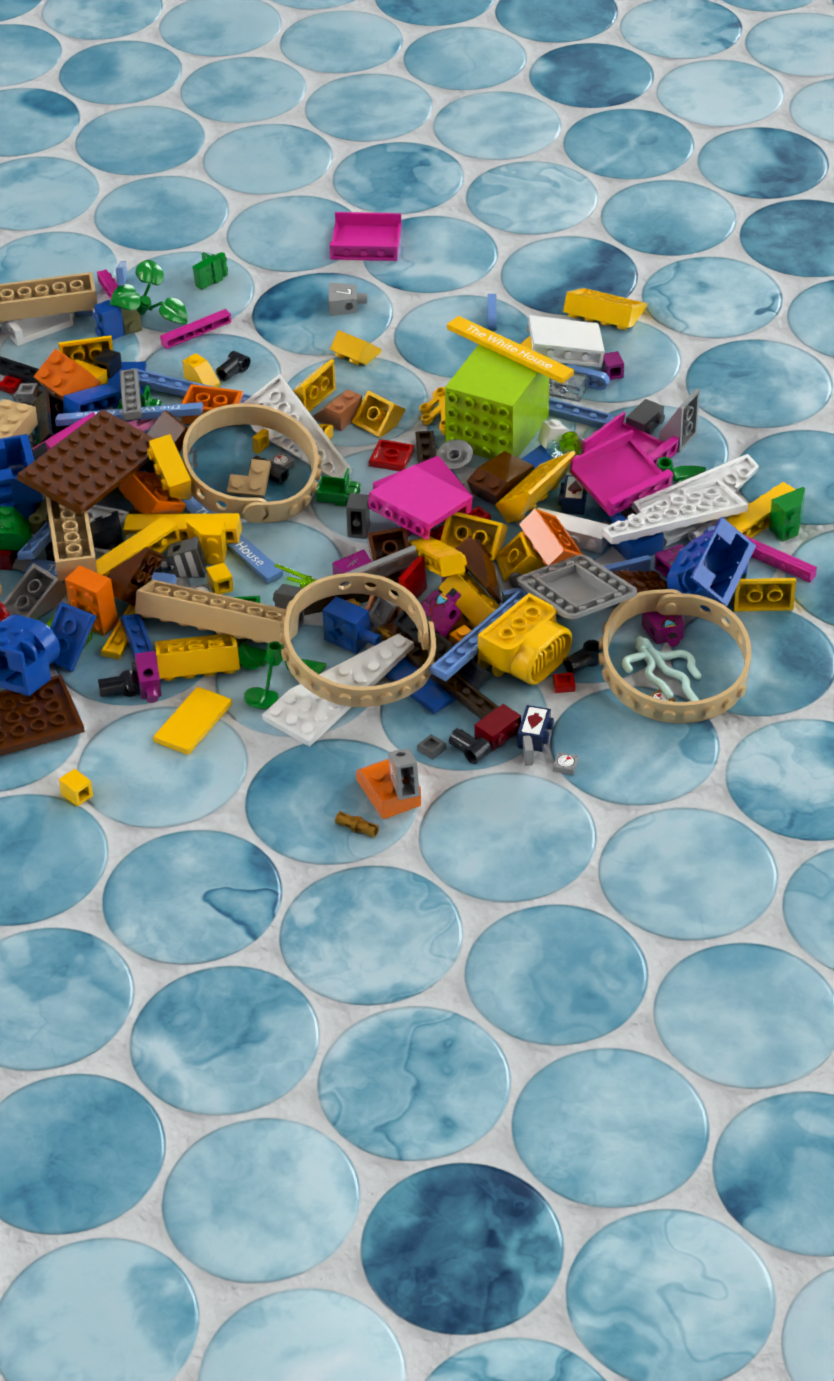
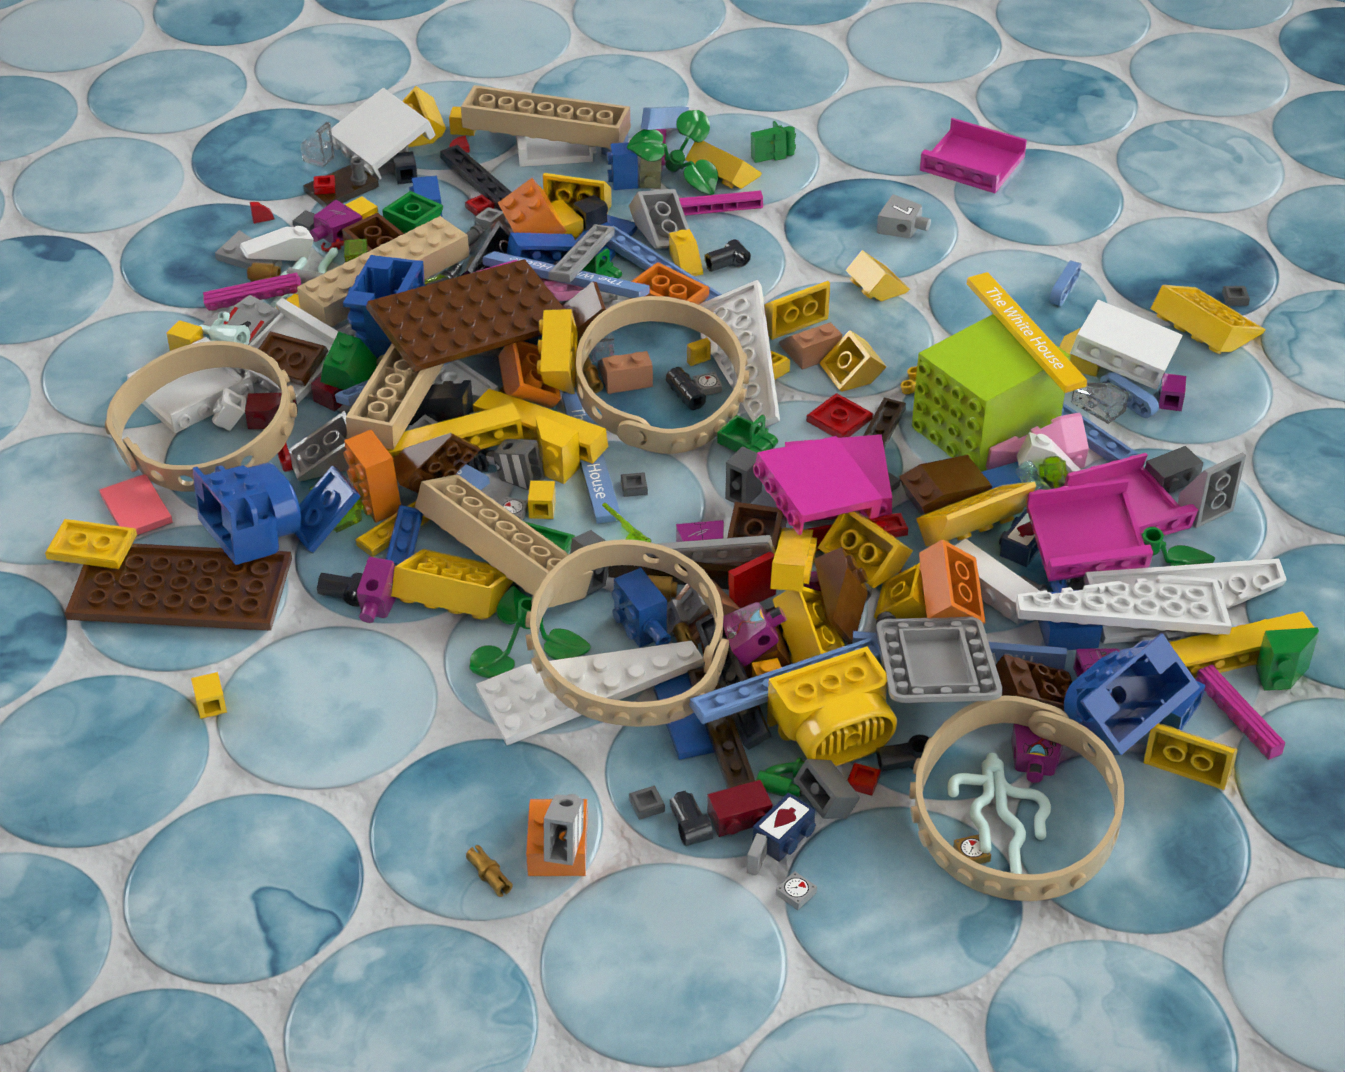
camera: 25 degrees right, 0 degrees up
(162, 351) = (657, 215): none -> light grey slope
(192, 720) = (396, 661): yellow tile -> none
(194, 299) = (729, 168): none -> yellow slope
(217, 471) = (626, 372): none -> nougat slope
(251, 485) = (659, 399): tan plate -> none
(276, 548) = (634, 484): none -> dark grey tile
(455, 454) = (910, 440): light grey dish -> none
(515, 704) = (779, 784): none -> green plant
(548, 694) = (826, 789): none -> dark grey brick
(562, 411) = (1065, 432): none -> bright pink wedge
(613, 285) = (1235, 296): none -> dark grey tile

